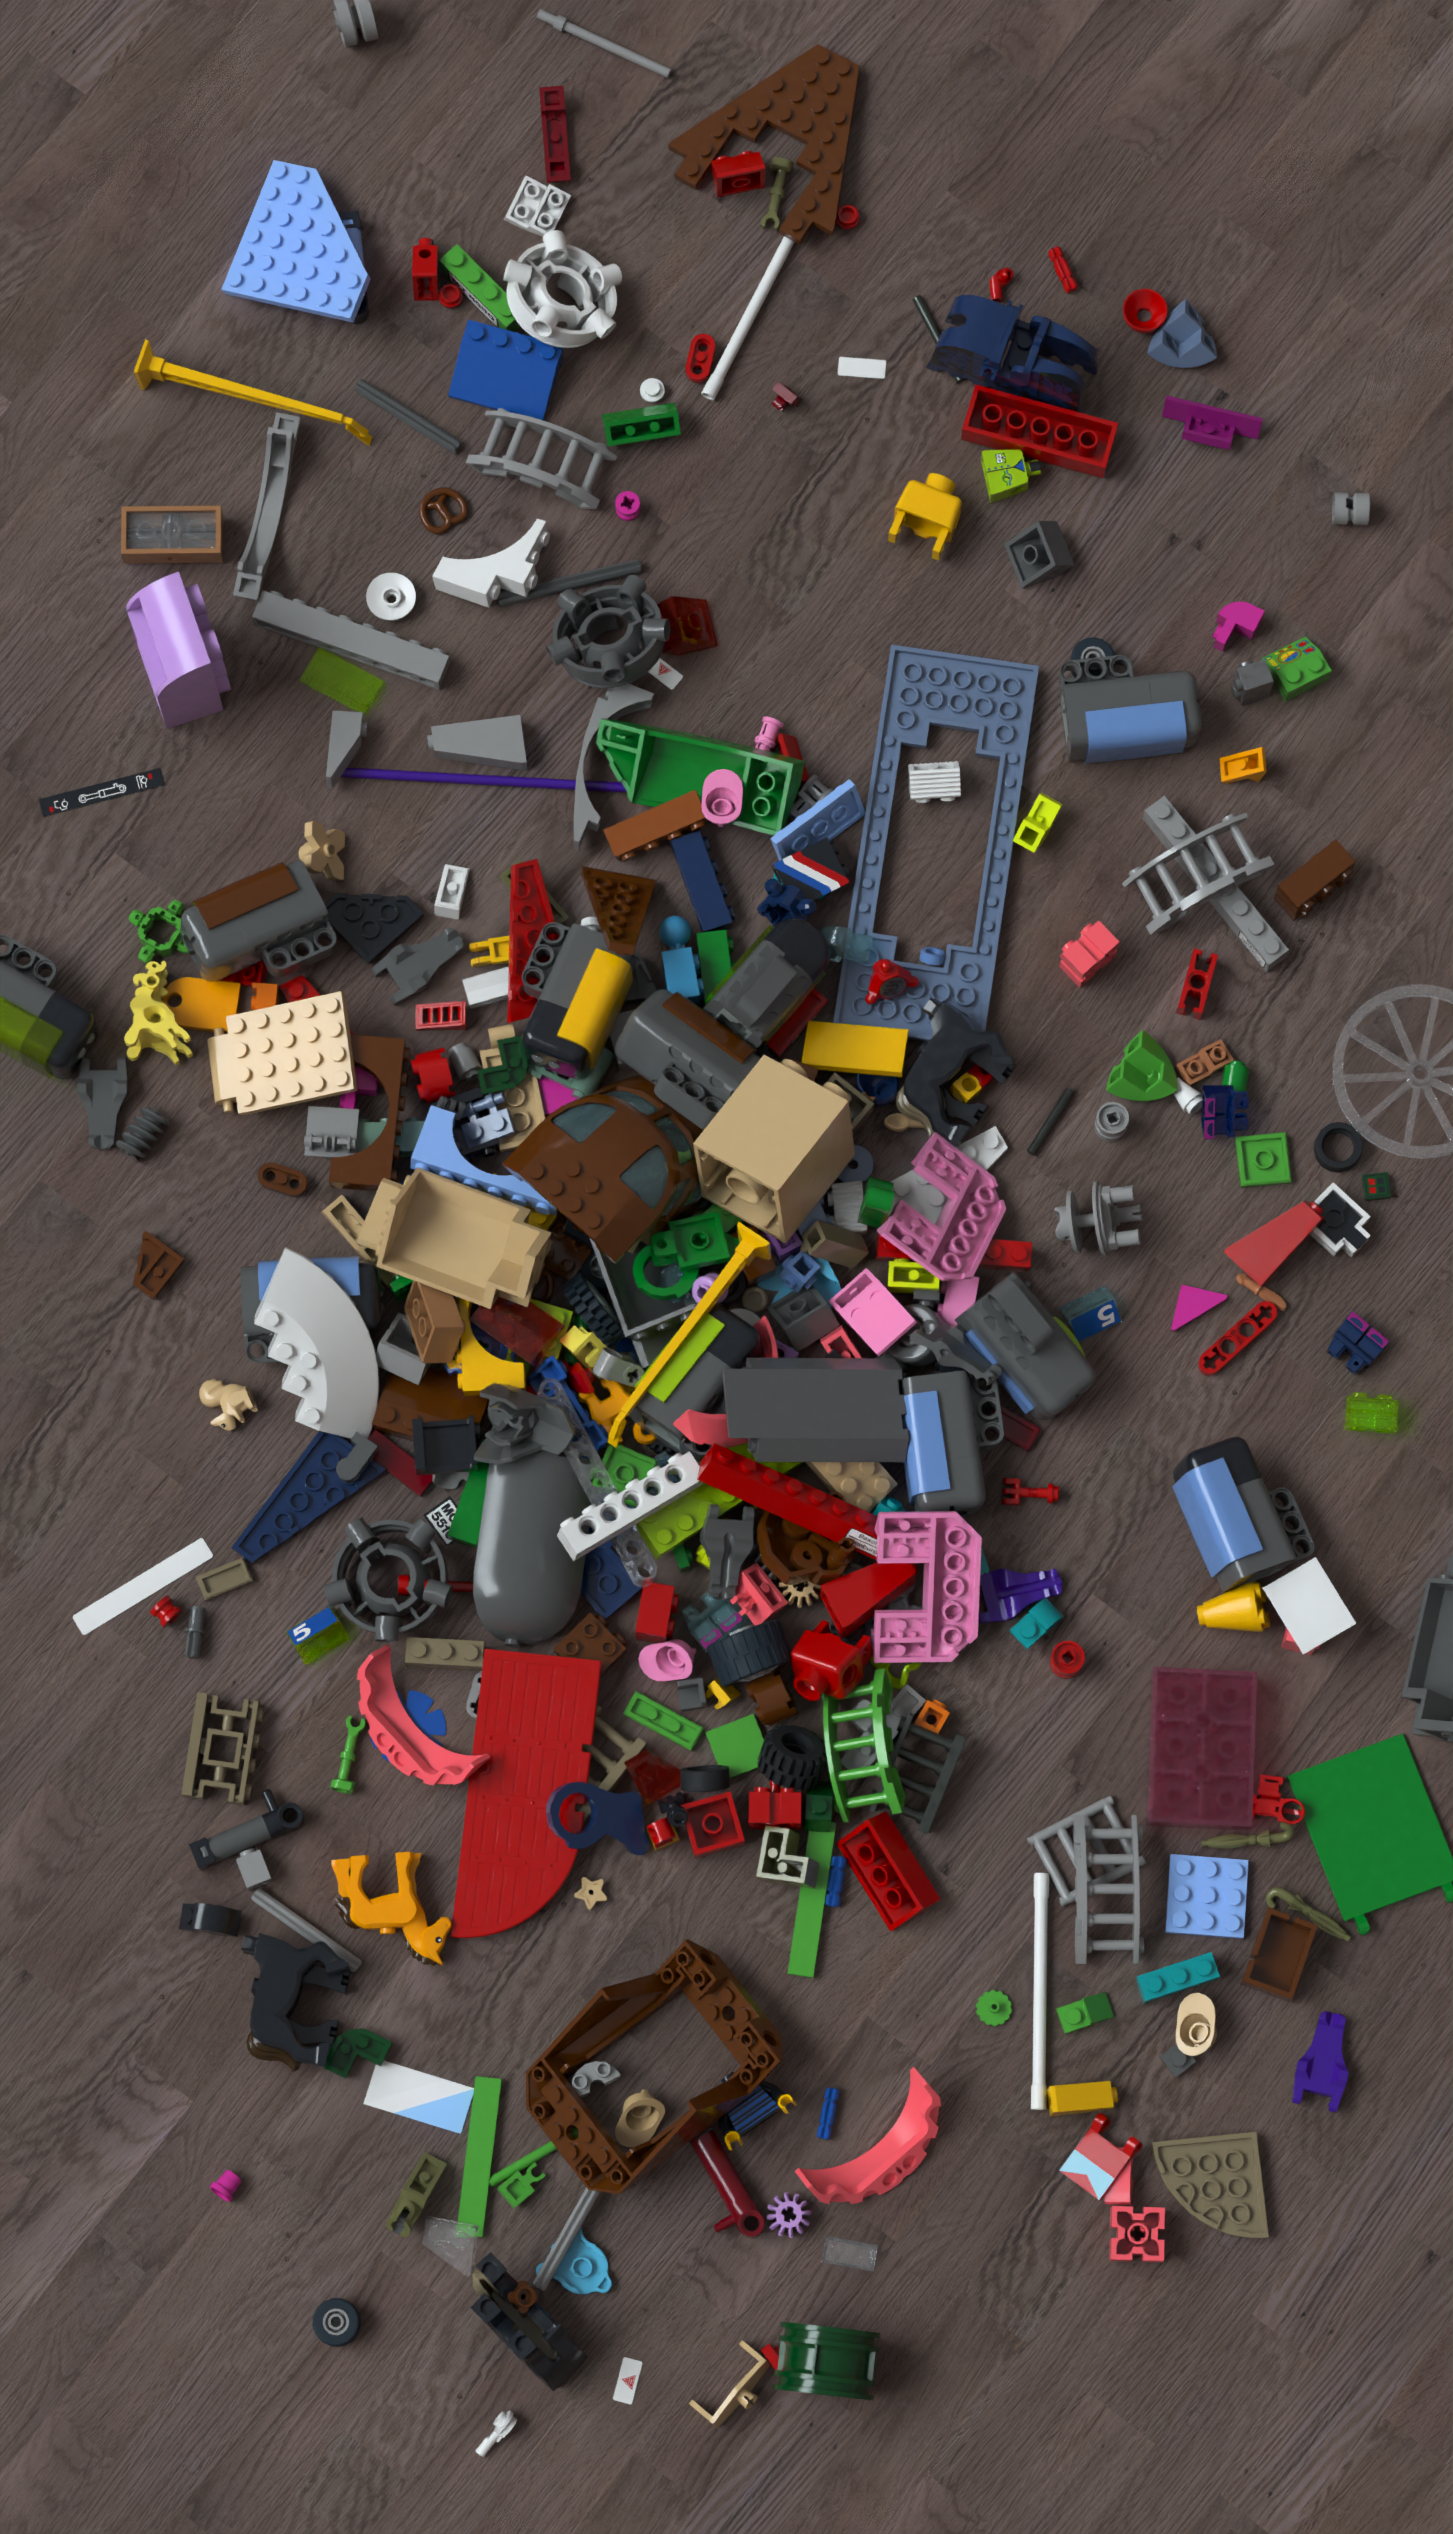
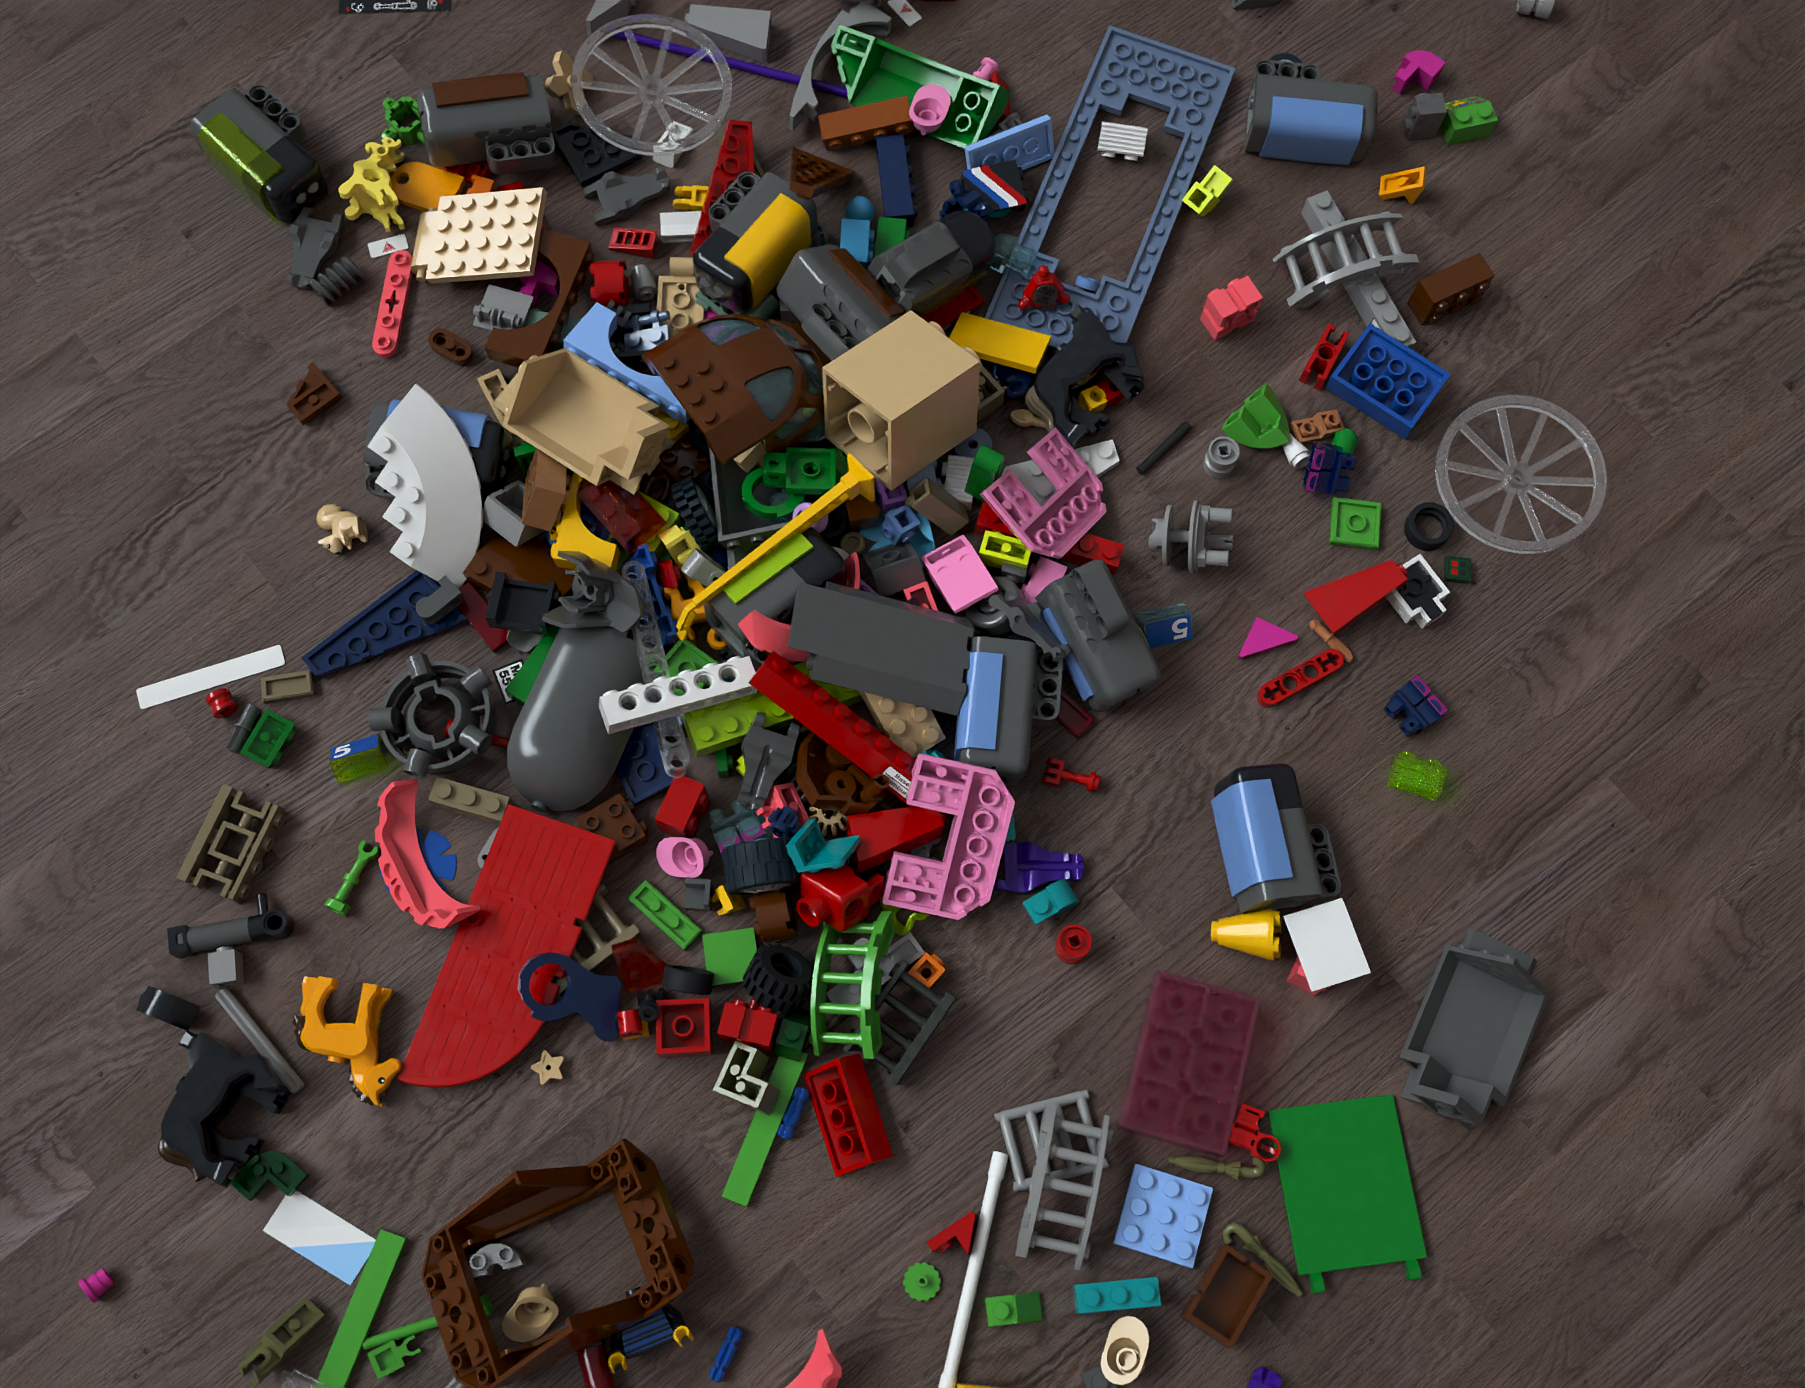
camera: 10 degrees right, 5 degrees down
(179, 1079) = (387, 245): none -> white sticker
(208, 1168) = (390, 323): none -> coral piece
(224, 1636) = (267, 738): none -> green bracket
(414, 847) = (649, 83): none -> clear wheel
(510, 1073) = (675, 298): dark green plate -> none
(762, 1606) = (784, 822): none -> dark blue gear
(800, 1630) = (813, 853): none -> teal bracket
(1018, 1952) = (960, 1230): none -> red slope
(1267, 998) = (1387, 380): none -> blue slope

